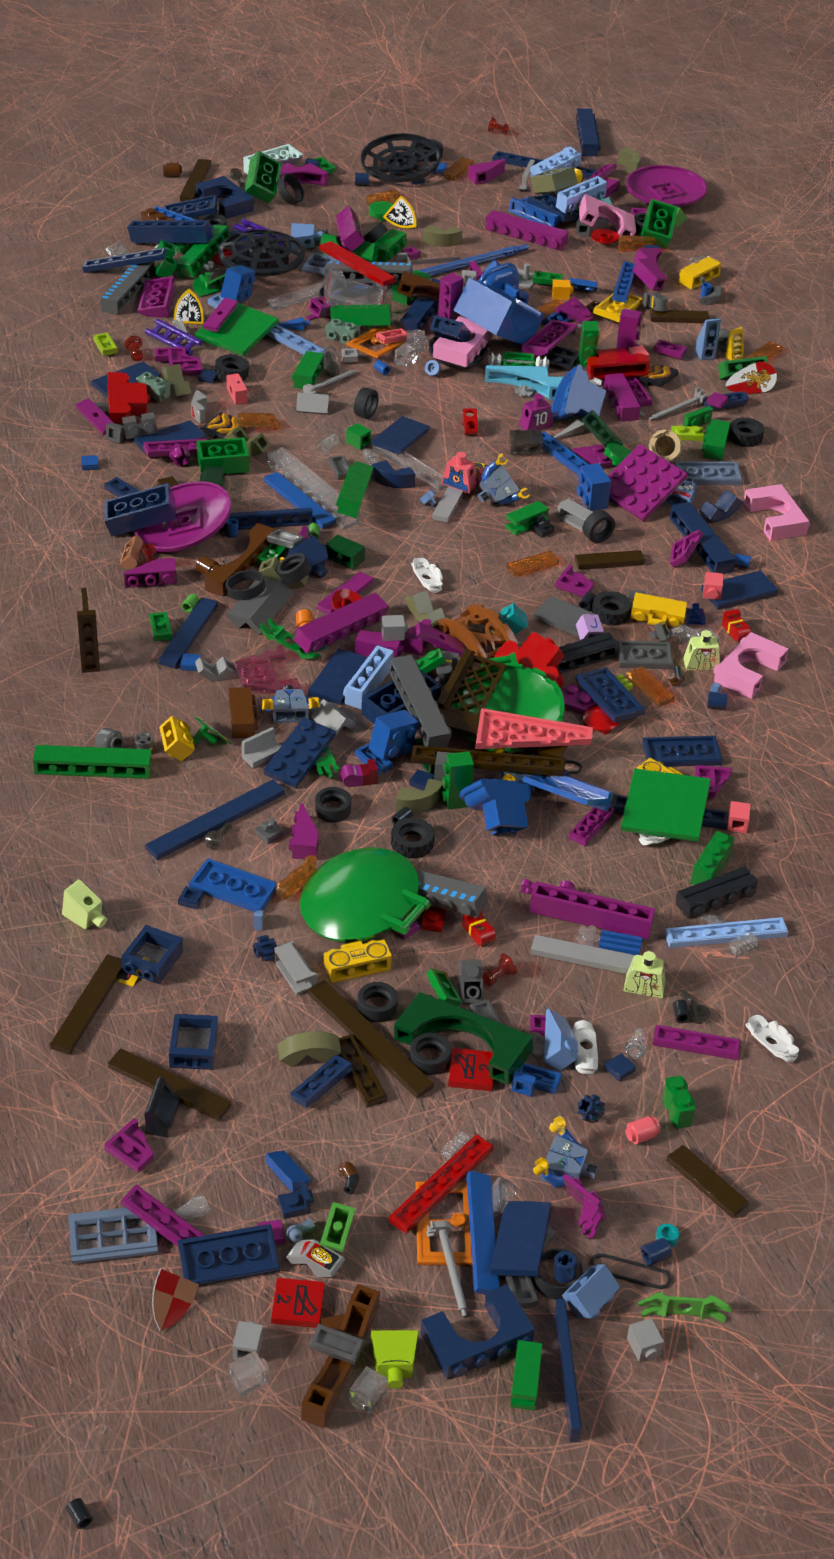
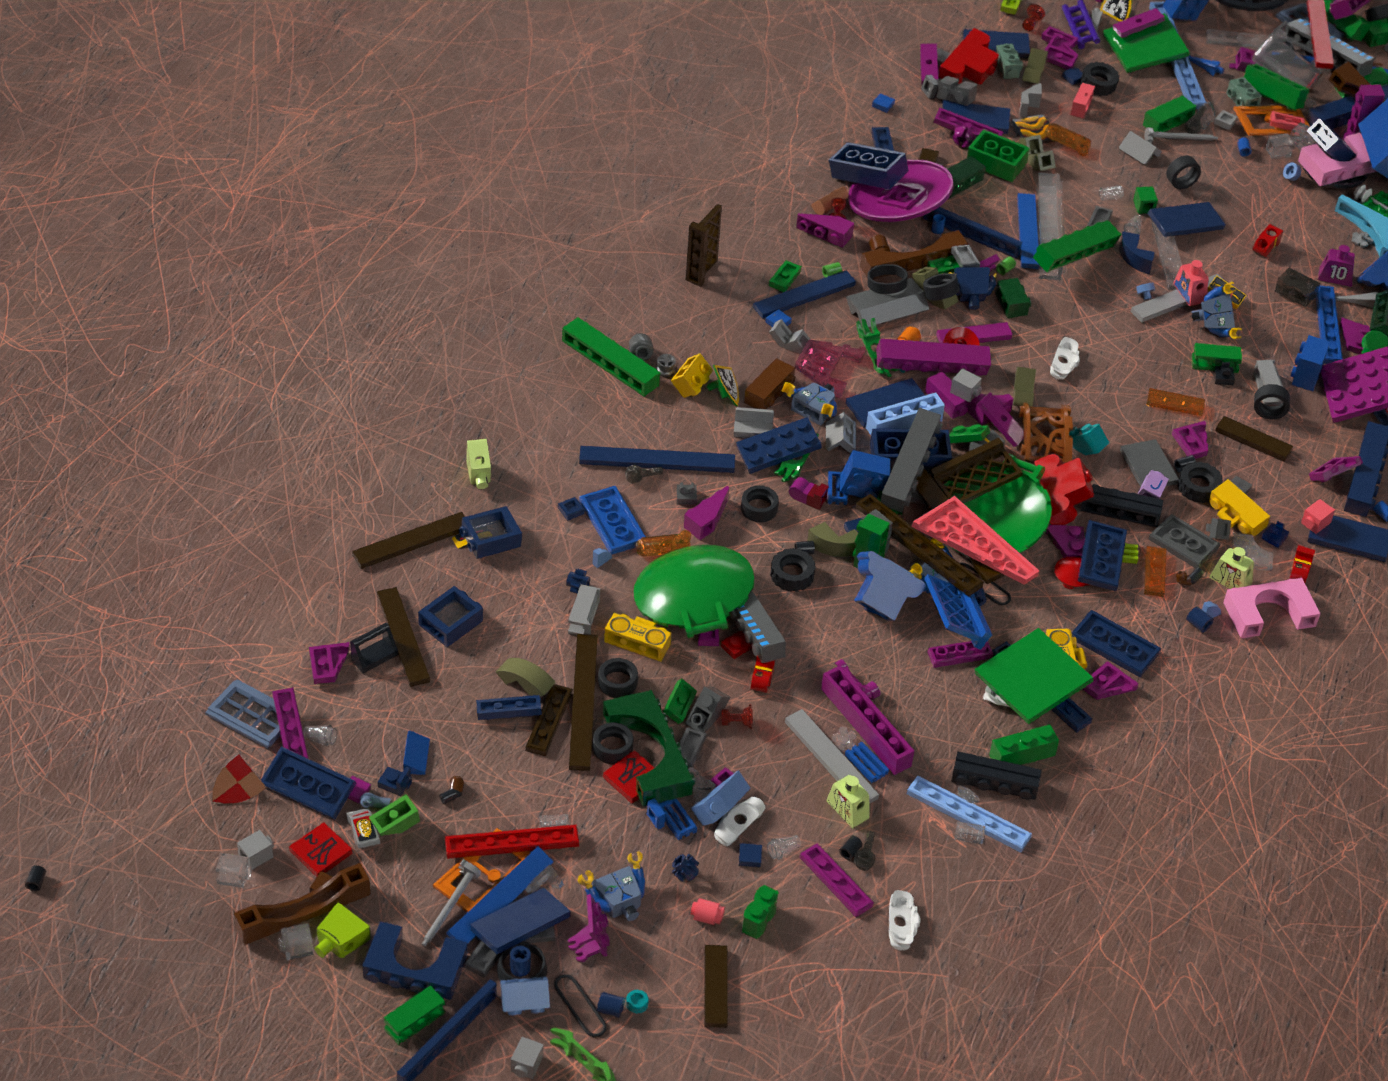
camera: 40 degrees right, 5 degrees up
(336, 1344) = (306, 894): flat silver tile -> none
(738, 817) = (1094, 728): coral brick -> none

